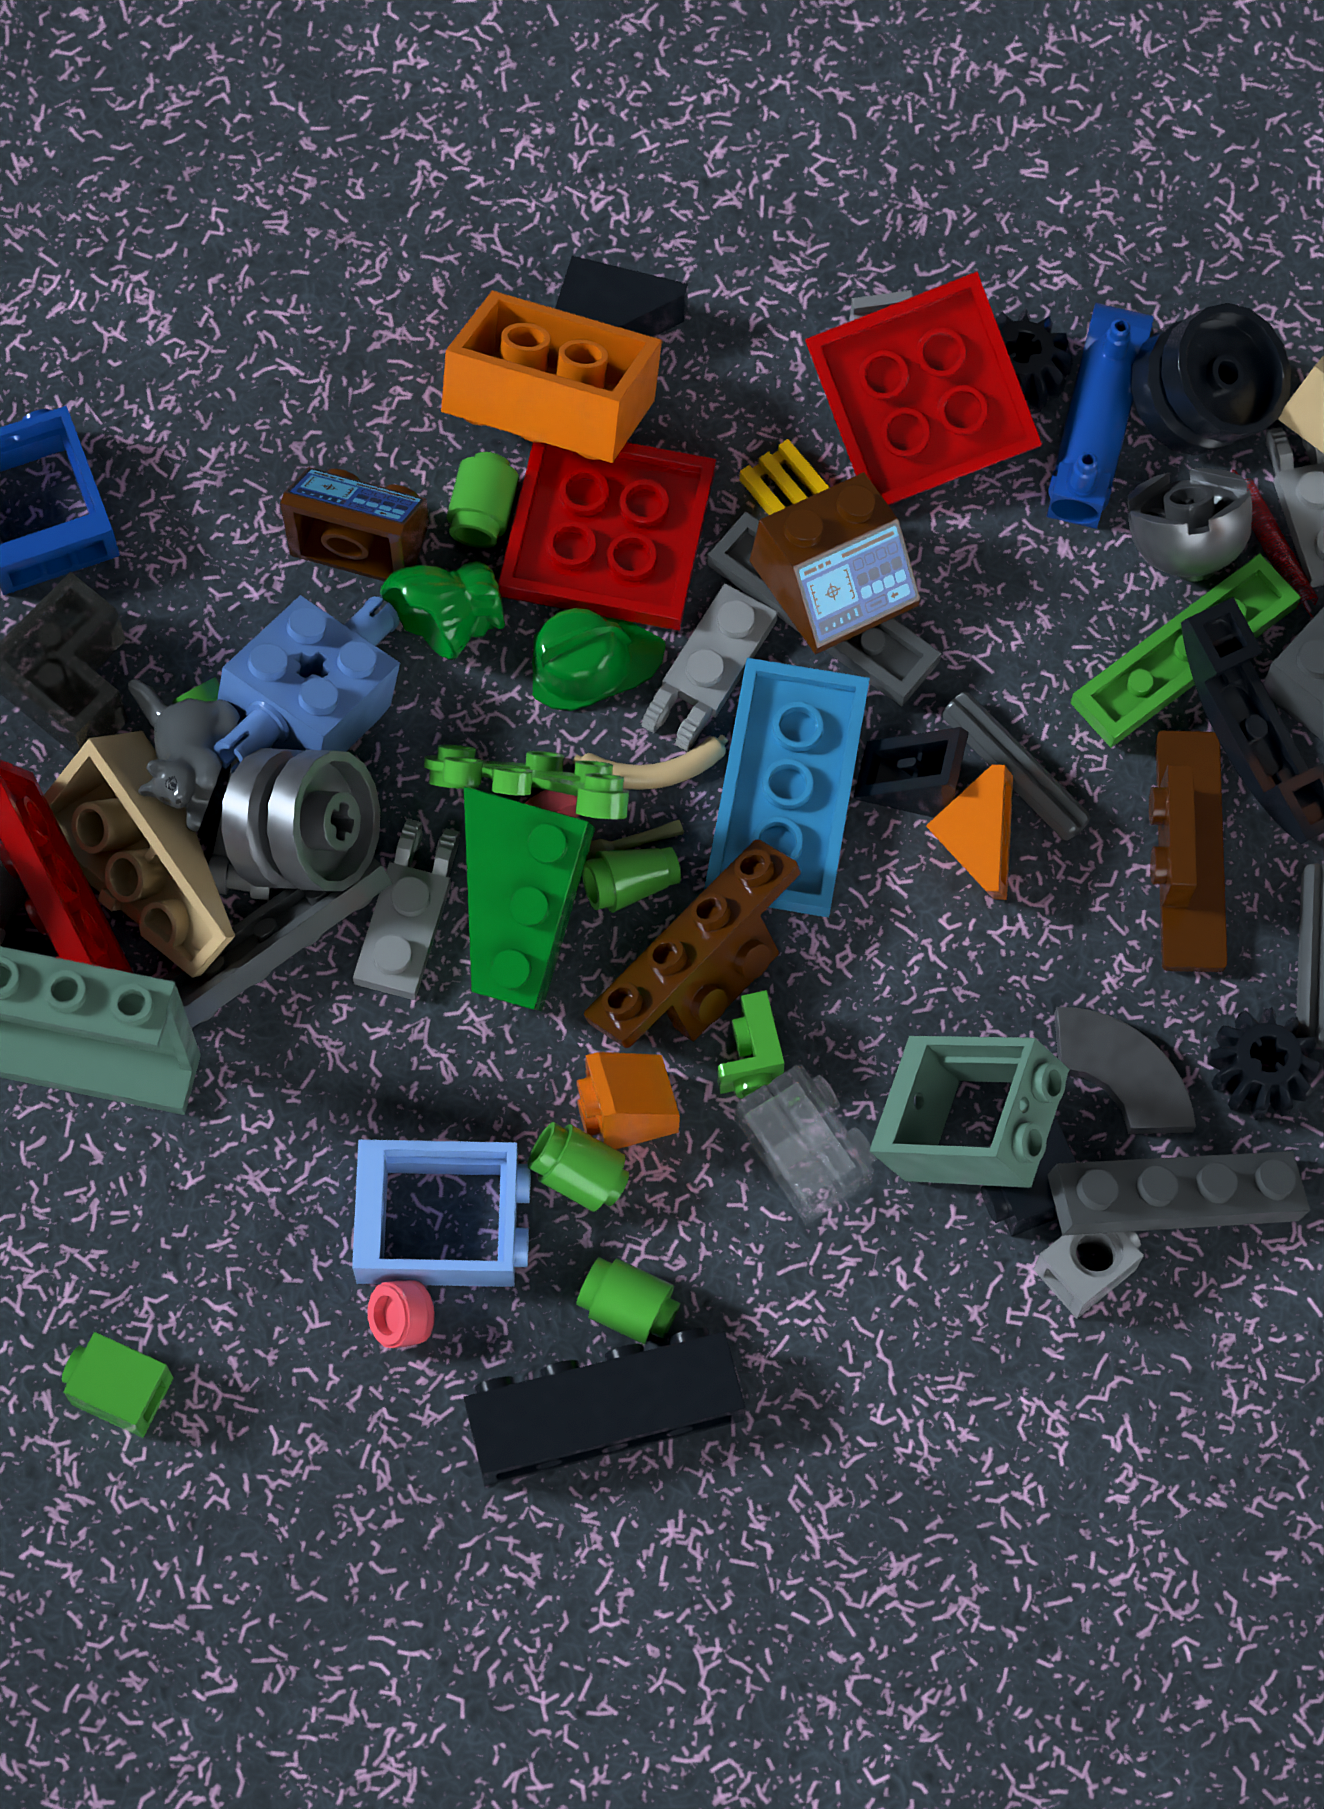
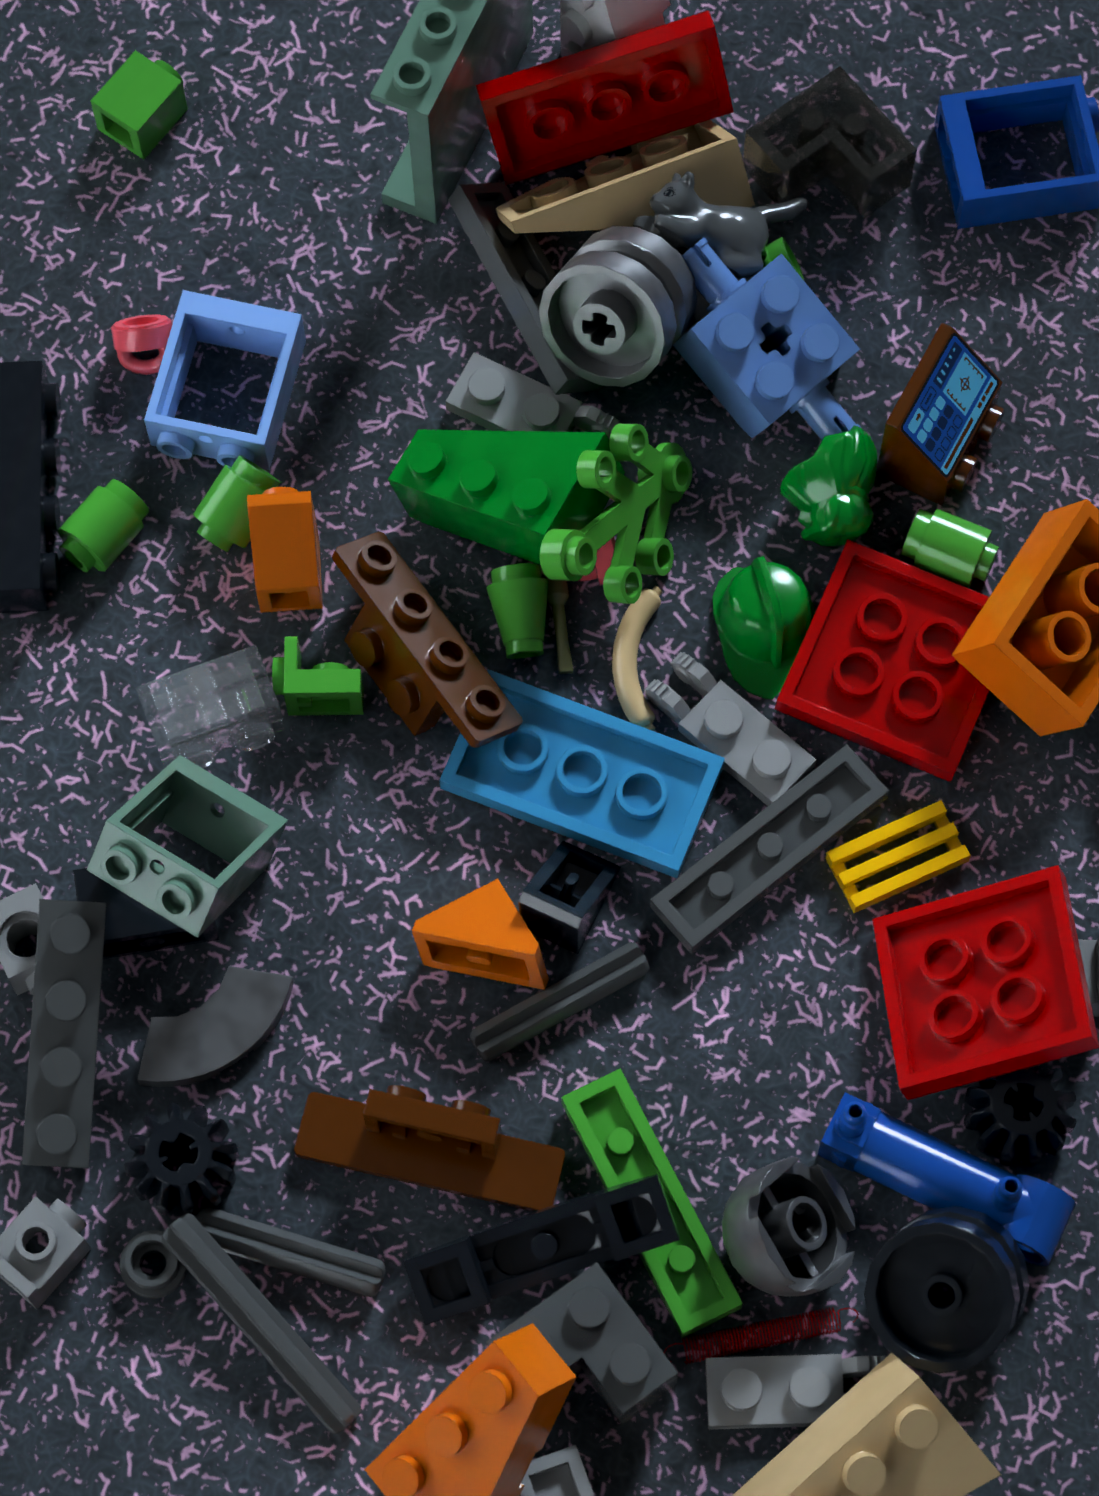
camera: 105 degrees right, 0 degrees up
(836, 563) = (798, 851): slope -> none

